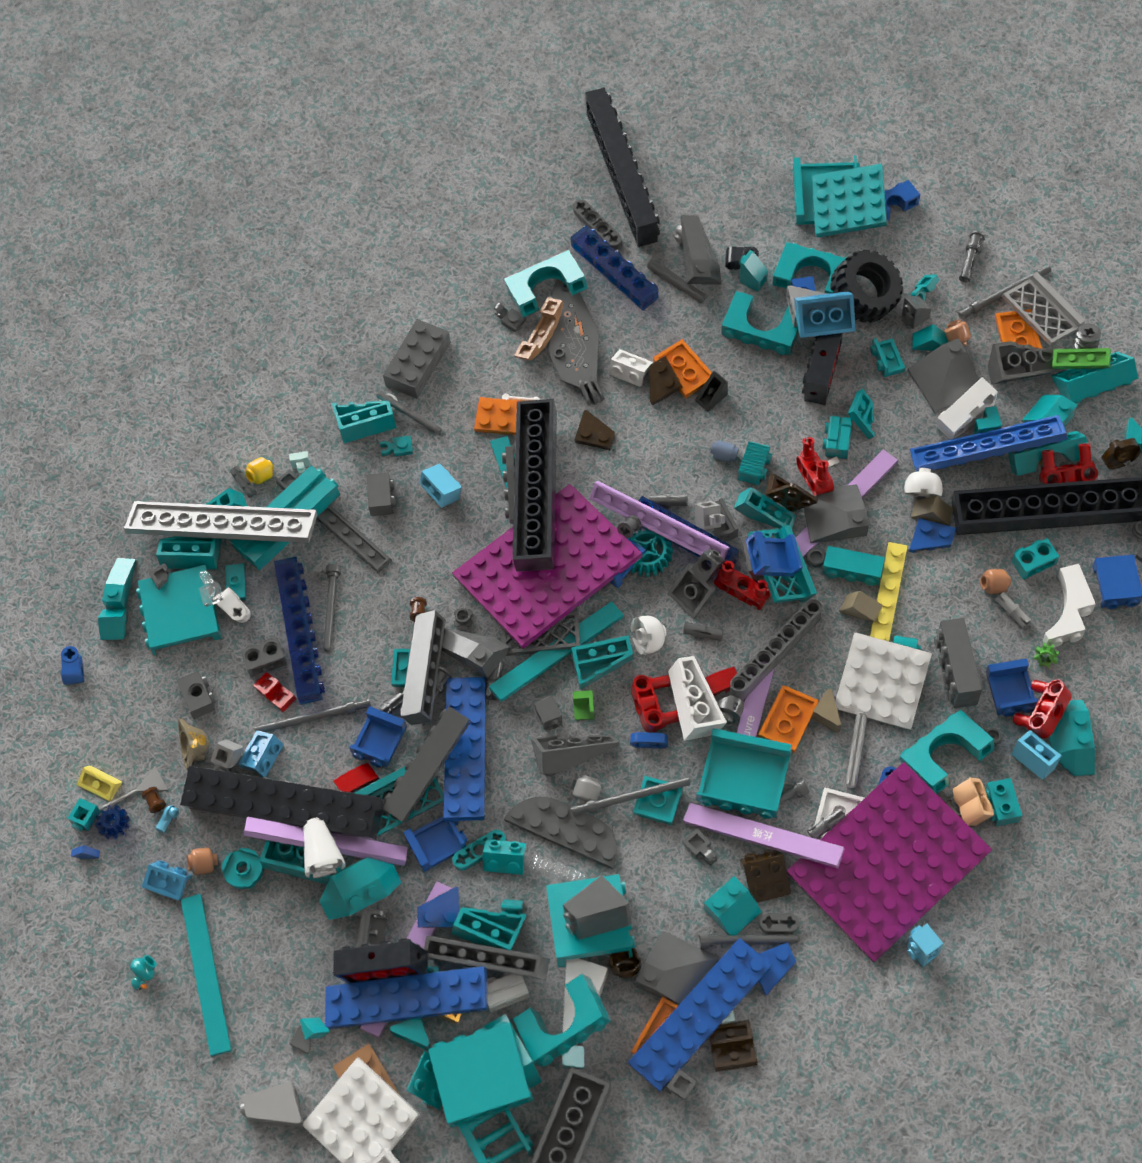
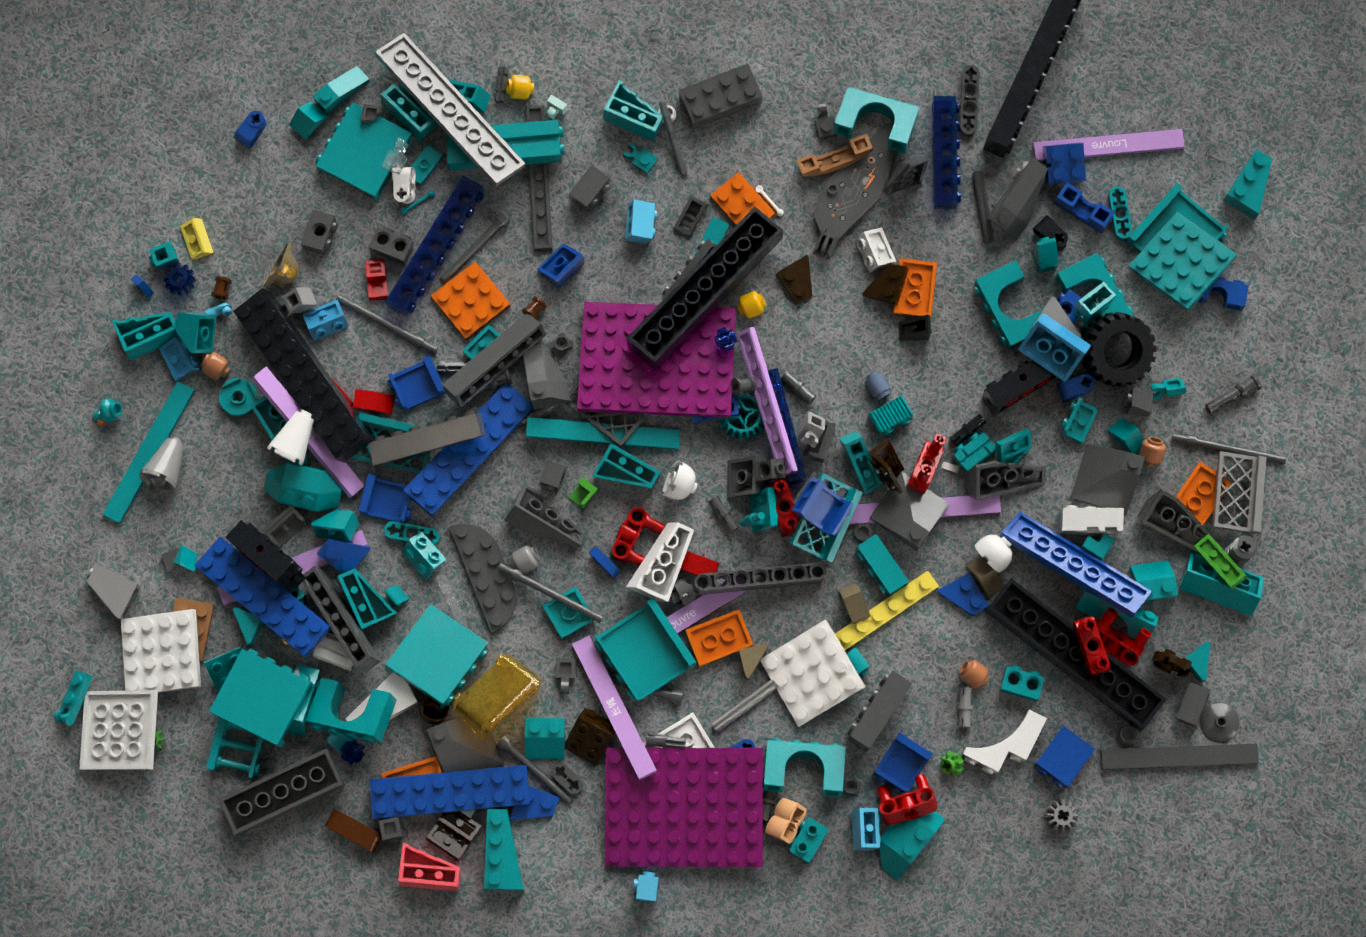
camera: 35 degrees right, 15 degrees up
(122, 883) = (145, 334): none -> teal wedge
(153, 779) = (233, 272): light grey piece -> none
(162, 843) = (196, 331): none -> teal slope
(230, 971) = (164, 465): none -> light grey cone
(250, 626) = (404, 210): none -> teal hinge
(362, 646) = (470, 300): none -> orange plate
(409, 563) = (561, 265): none -> blue slope
(413, 892) = (336, 525): none -> teal slope
(470, 440) = (703, 205): none -> dark grey slope
(578, 473) = (751, 304): none -> yellow head
(585, 504) = (725, 339): none -> clear blue gear
(592, 1055) = (352, 752): none -> clear blue gear
(596, 910) = (439, 657): dark grey slope -> none
(604, 296) = (907, 174): none -> dark grey wedge
(652, 1115) = (353, 830): none -> reddish brown beam
(664, 907) = (496, 695): none -> clear yellow windscreen
(706, 204) = (1064, 162): none -> blue piece
(722, 175) = (1121, 143): none -> lavender tile
(730, 600) = (762, 511): none -> teal plate
(743, 1092) = (427, 871): none -> coral wedge
(760, 223) = (1074, 203): none -> blue arch
(771, 203) = (1123, 199): none -> teal beam
(789, 1027) = (501, 857): none -> teal wedge
(818, 426) = (967, 430): none -> black pin
(820, 277) = (1089, 307): none -> teal torso
(842, 123) = (1250, 185): none -> teal wedge
(861, 338) = (1072, 387): none -> blue piece
(874, 435) = (1001, 478): none -> dark grey wedge
(1071, 488) = (1096, 660): none -> red piece

